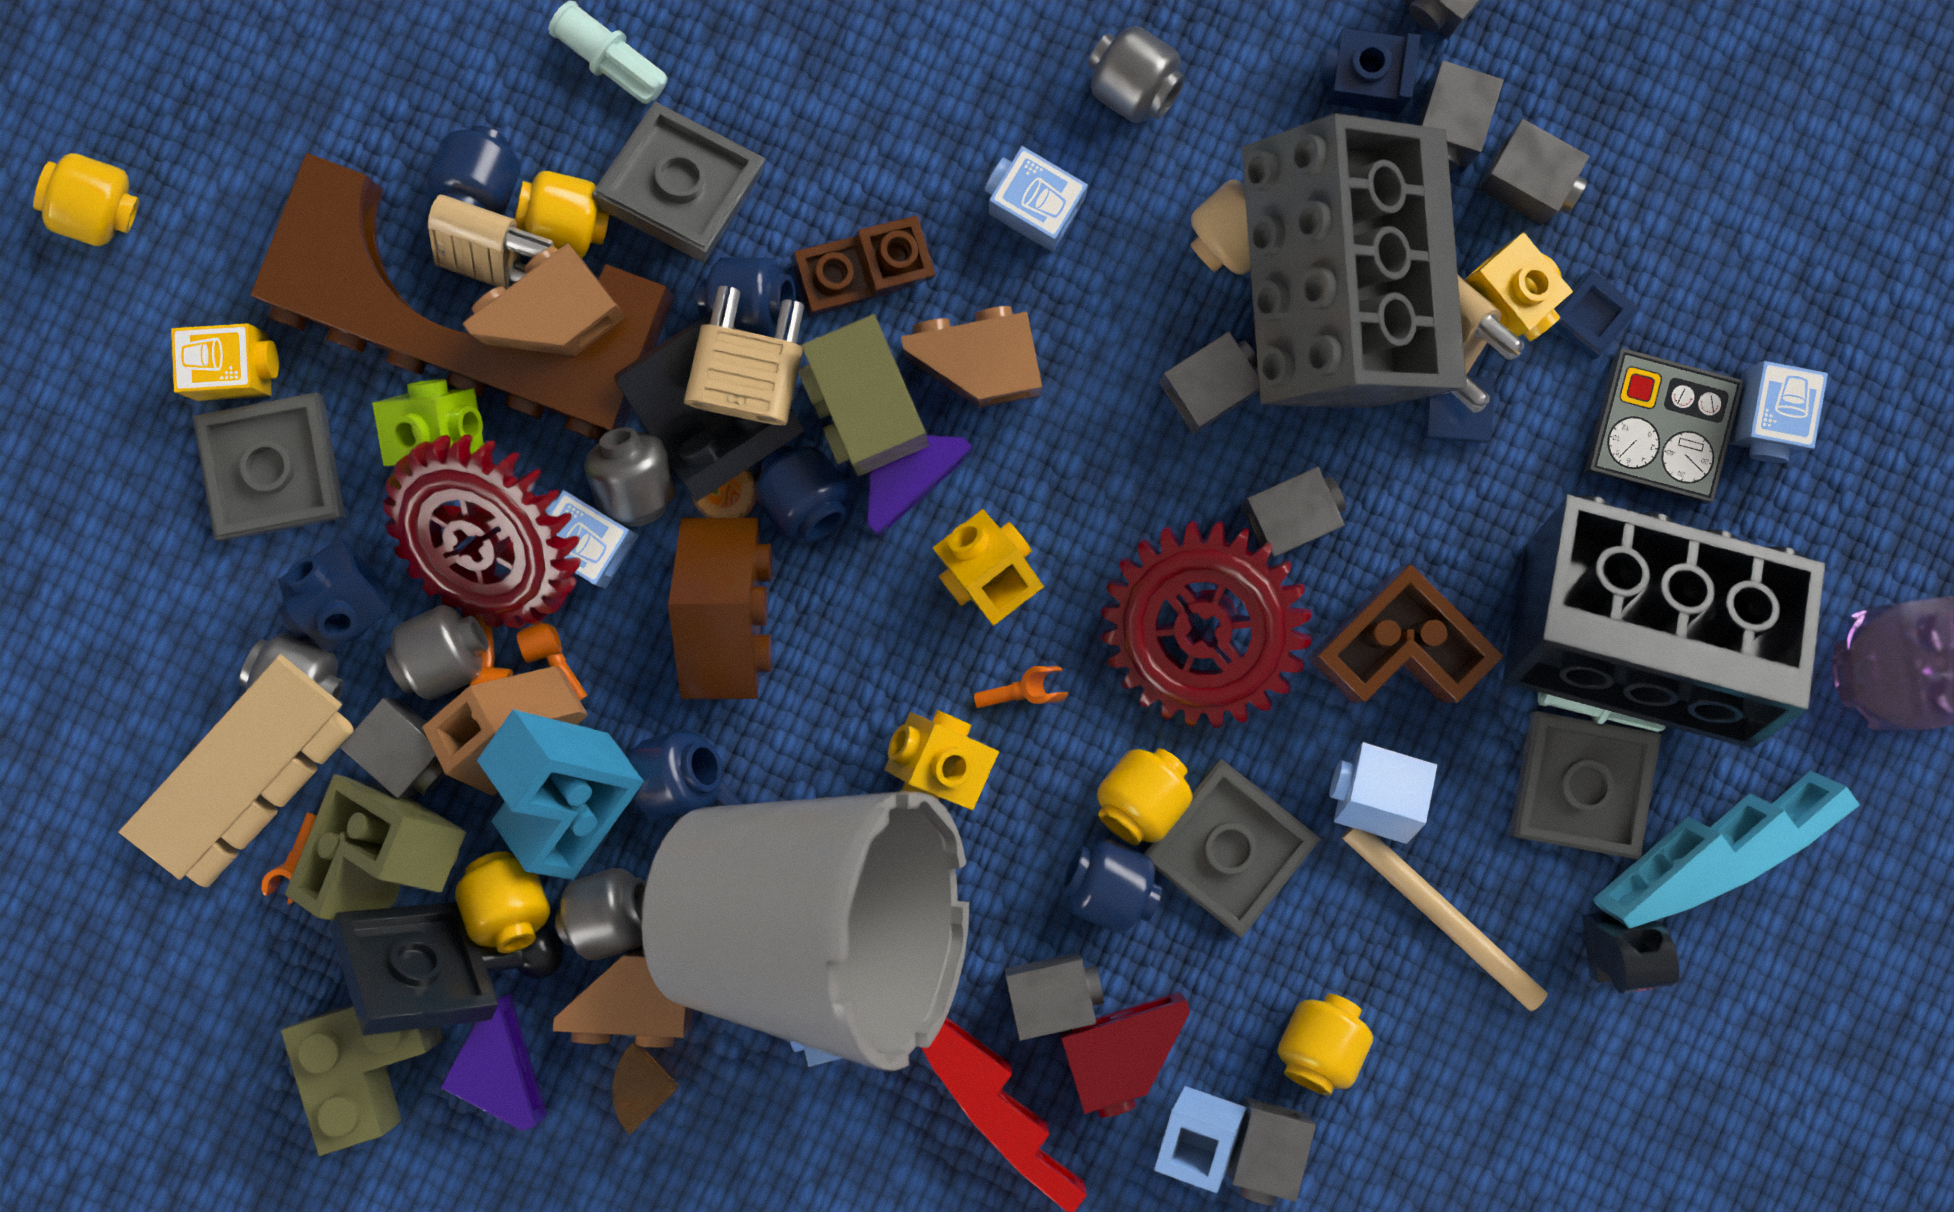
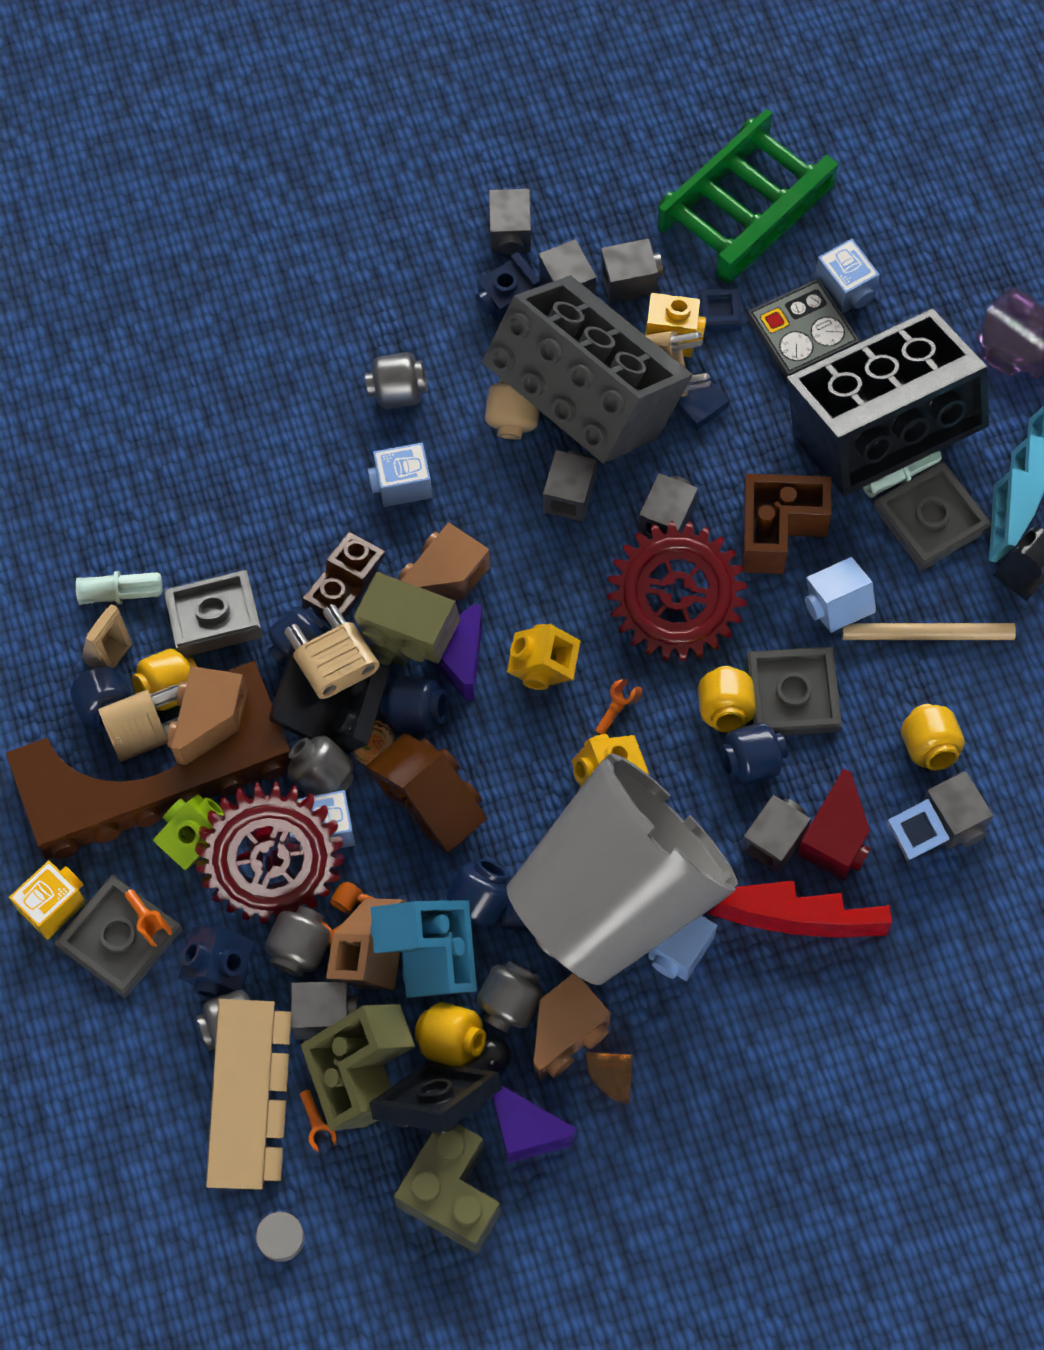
camera: 40 degrees left, 20 degrees down
(156, 945) = (280, 1236): none -> light grey tile
(298, 487) = (149, 921): none -> orange hand
(530, 114) = (107, 640): none -> tan slope
(1799, 250) = (759, 230): none -> green fence

